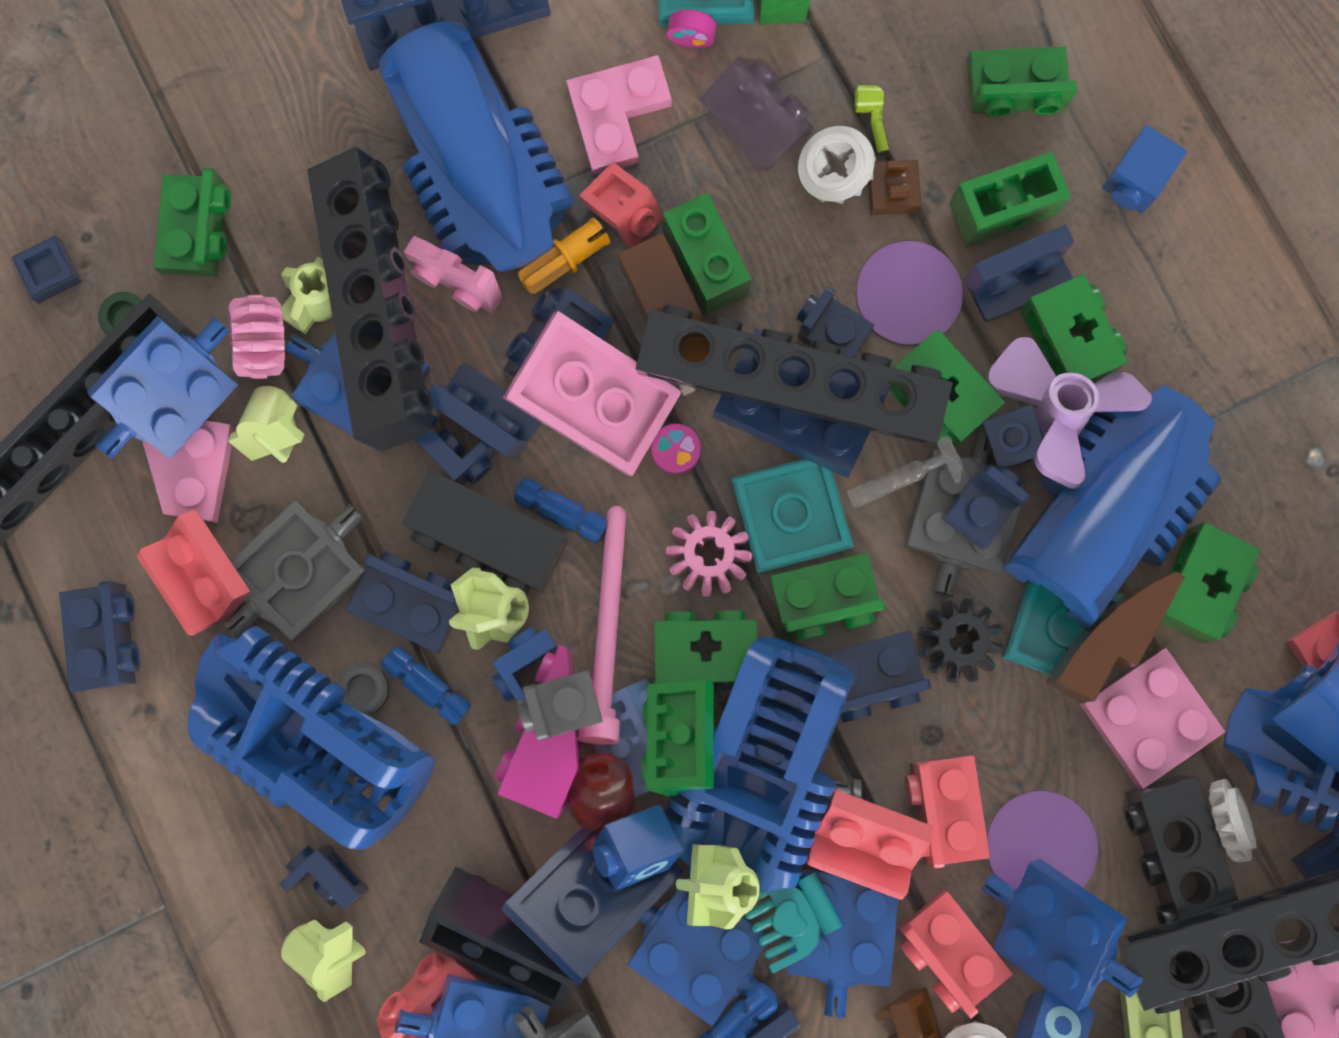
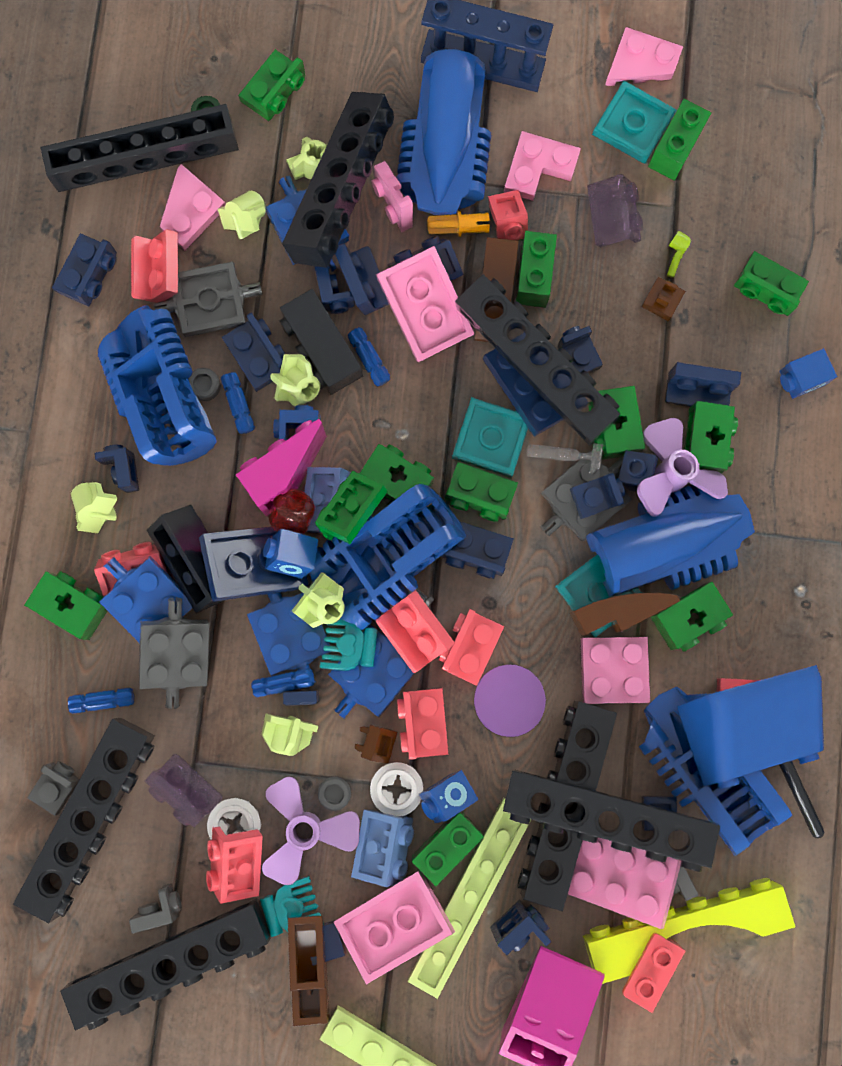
camera: 30 degrees right, 0 degrees up
(46, 269) = (182, 62): dark blue tile -> none
(162, 387) = (201, 157): plate -> none
(256, 336) = (267, 162): bright pink gear -> none
(560, 706) = (297, 448): dark grey bracket -> none
(603, 675) = (314, 477): bright pink piece -> none
(676, 449) = (451, 363): dark pink tile -> none
(691, 29) = (607, 145): dark pink tile -> none
(722, 544) = (419, 428): bright pink gear -> none
(842, 143) = (626, 262): white gear -> none
(909, 292) = (634, 359): medium lavender sticker -> none
(974, 651) = (544, 569): black gear -> none
(1009, 199) = (721, 342): green brick -> none
(1060, 934) = (486, 746): blue plate -> none
(1232, 821) = (621, 749): white gear -> none

